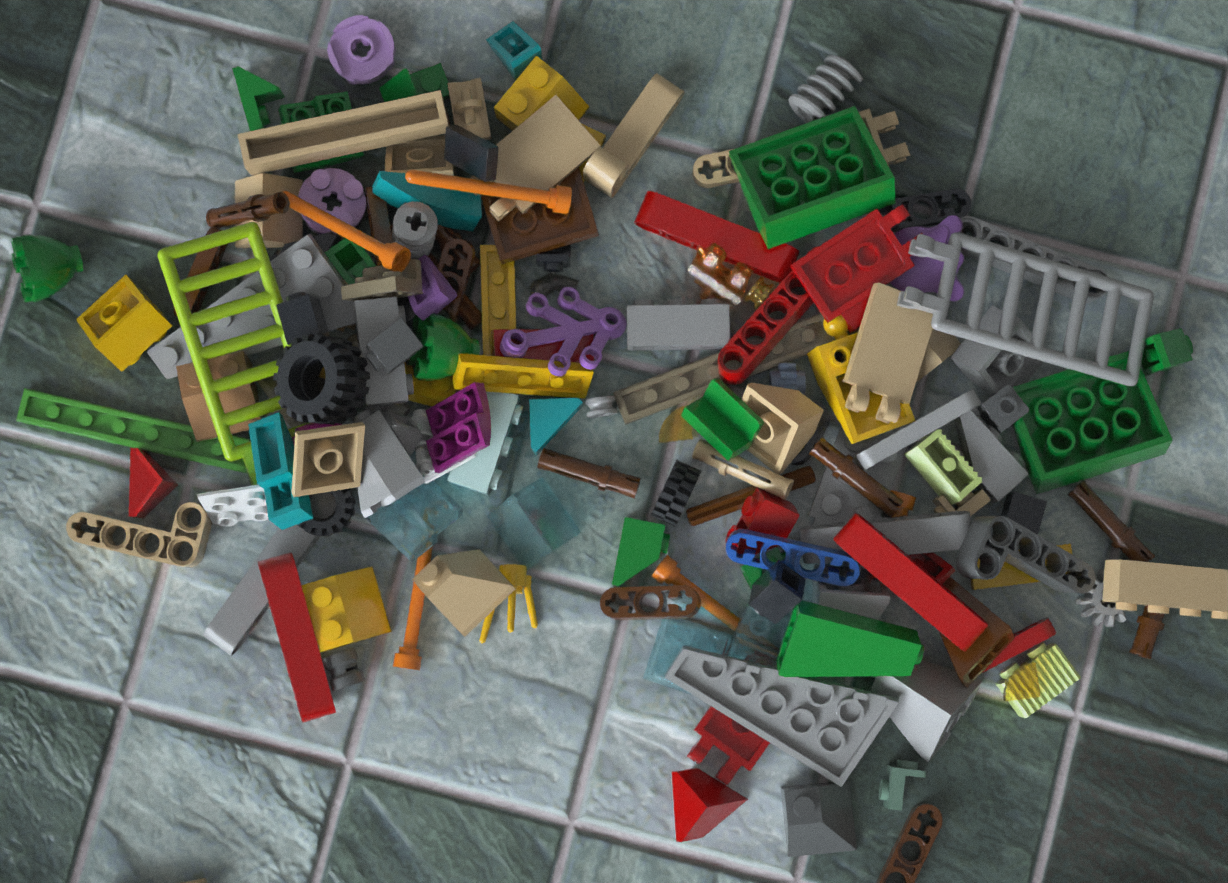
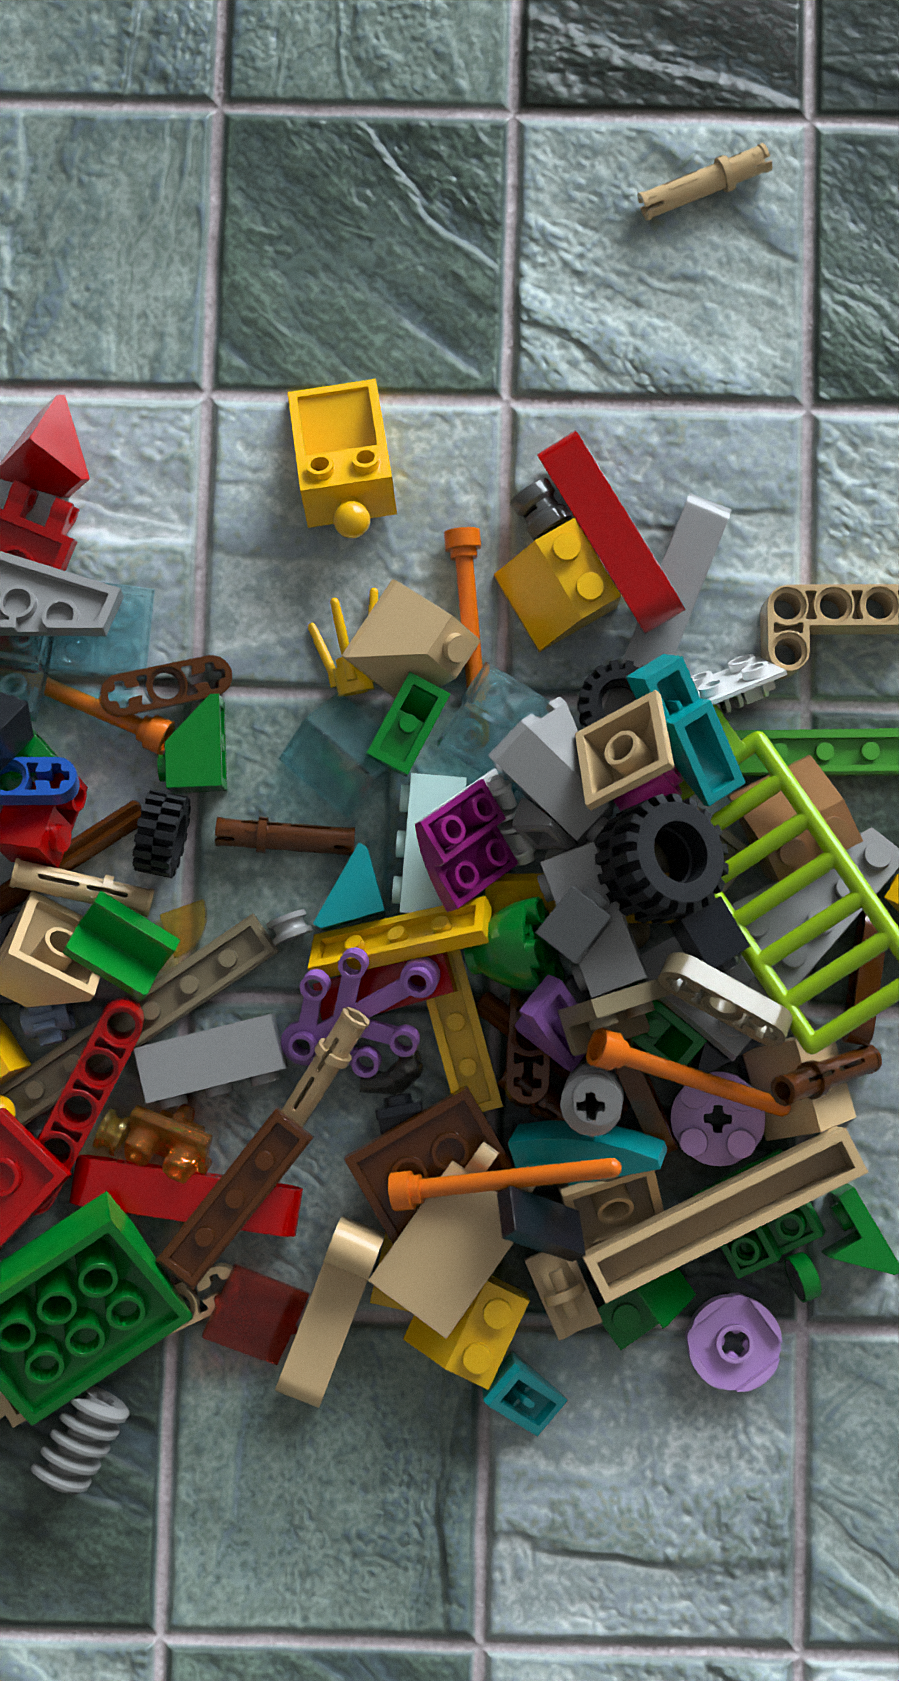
camera: 170 degrees right, 0 degrees up
(147, 484) = (858, 686): red slope -> none
(302, 81) = (803, 1276): none -> green tile
(303, 273) = (725, 998): none -> dark tan beam
(480, 529) = (407, 724): none -> green slope
(480, 747) = (342, 456): none -> yellow slope
(575, 320) = (330, 1057): none -> tan pin
(680, 224) = (234, 1198): none -> reddish brown tile
(686, 145) = (255, 1314): none -> clear red piece

